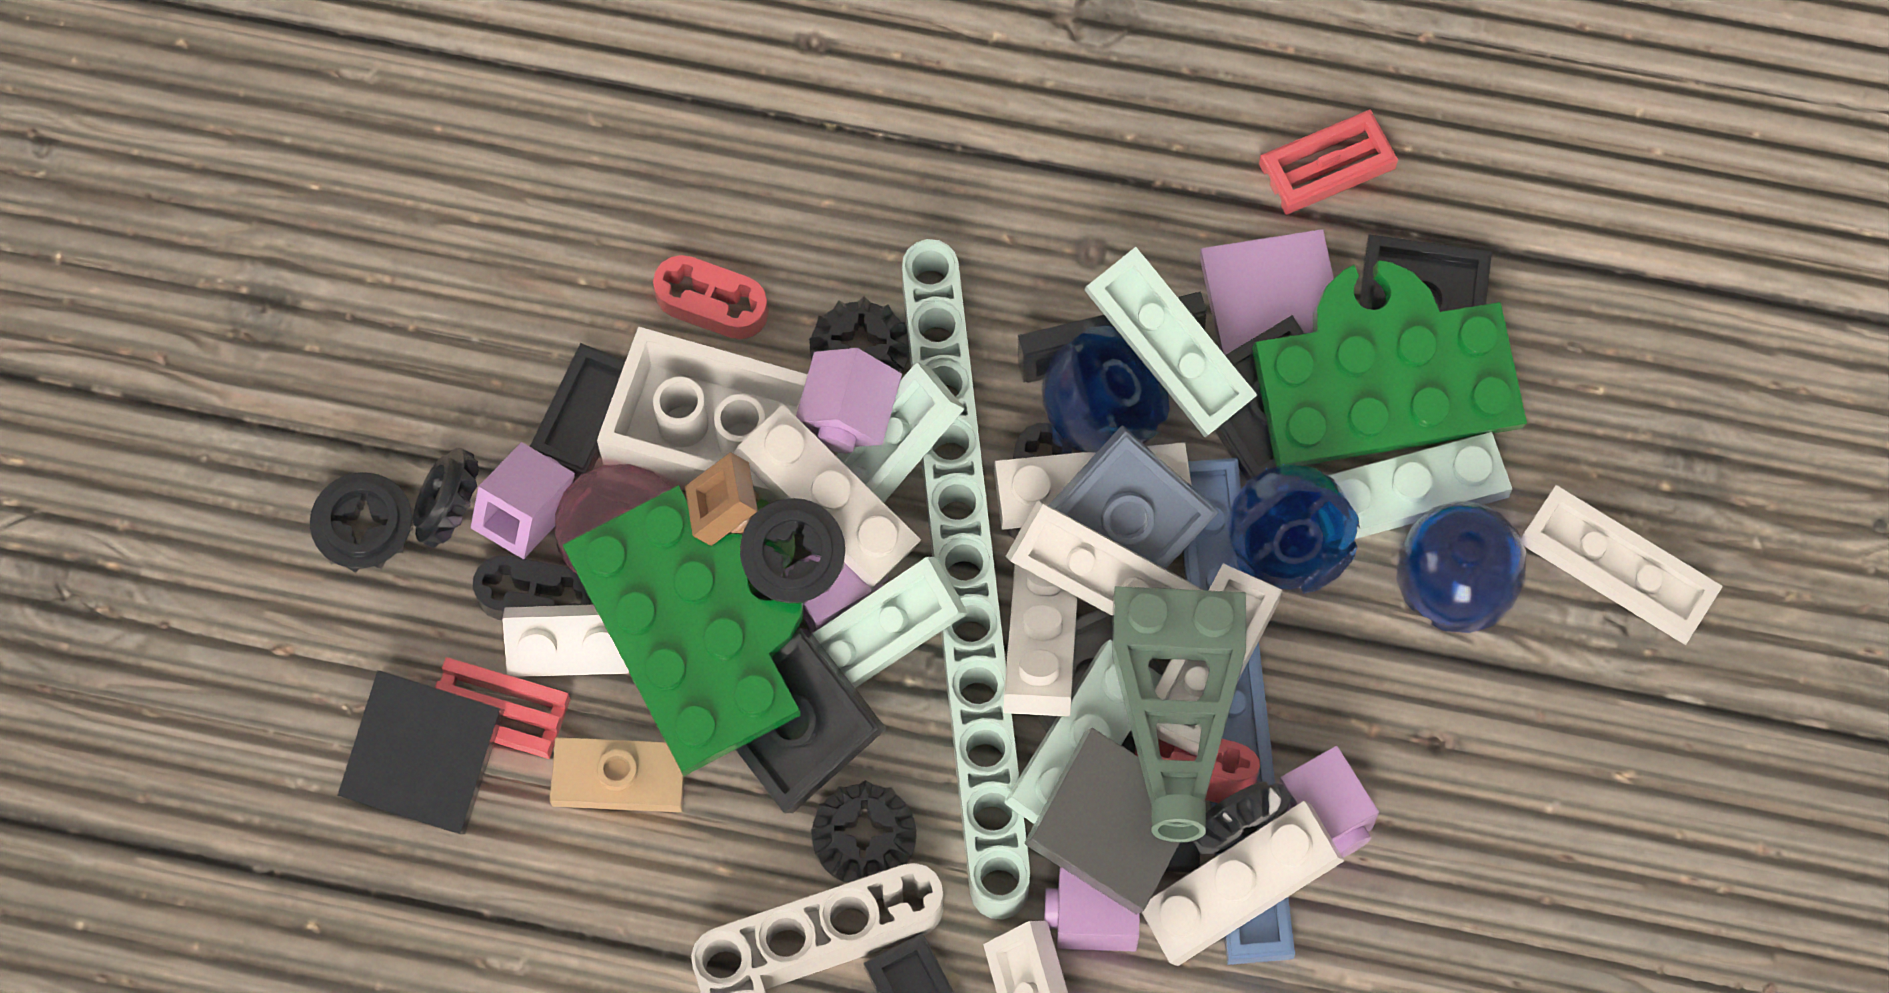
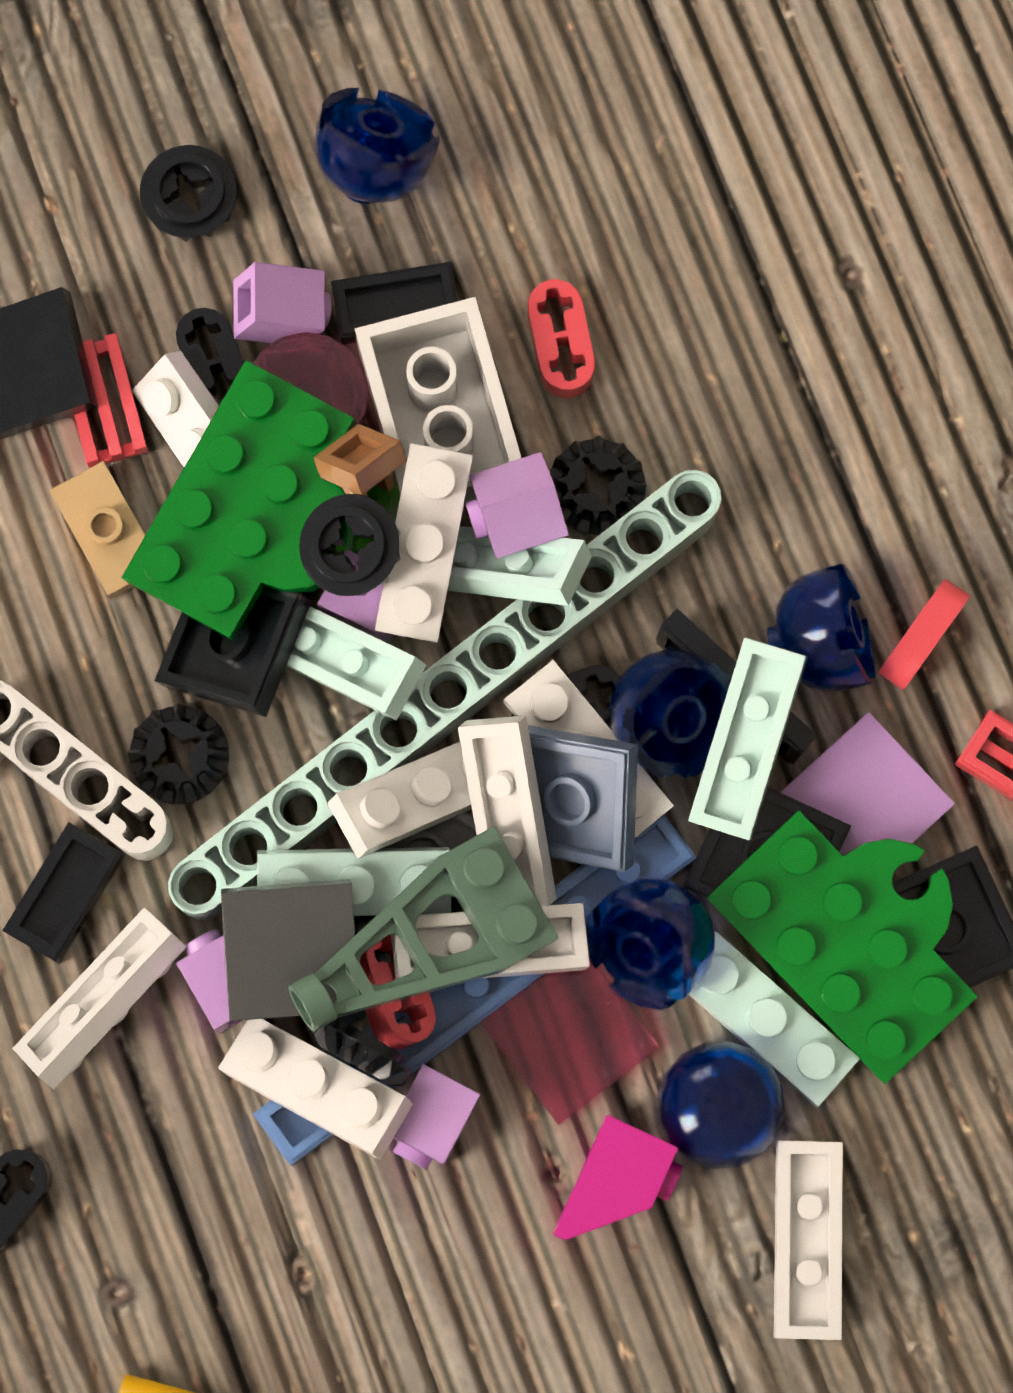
camera: 55 degrees right, 10 degrees up
(439, 336) = (374, 146): none -> clear blue cylinder
(445, 497) = (242, 242): black gear -> none
(1100, 229) = (823, 623): none -> clear blue cylinder
(1164, 166) = (924, 634): none -> coral beam
(1328, 657) = (569, 1038): none -> clear pink tile
(1474, 685) = (618, 1179): none -> dark pink slope

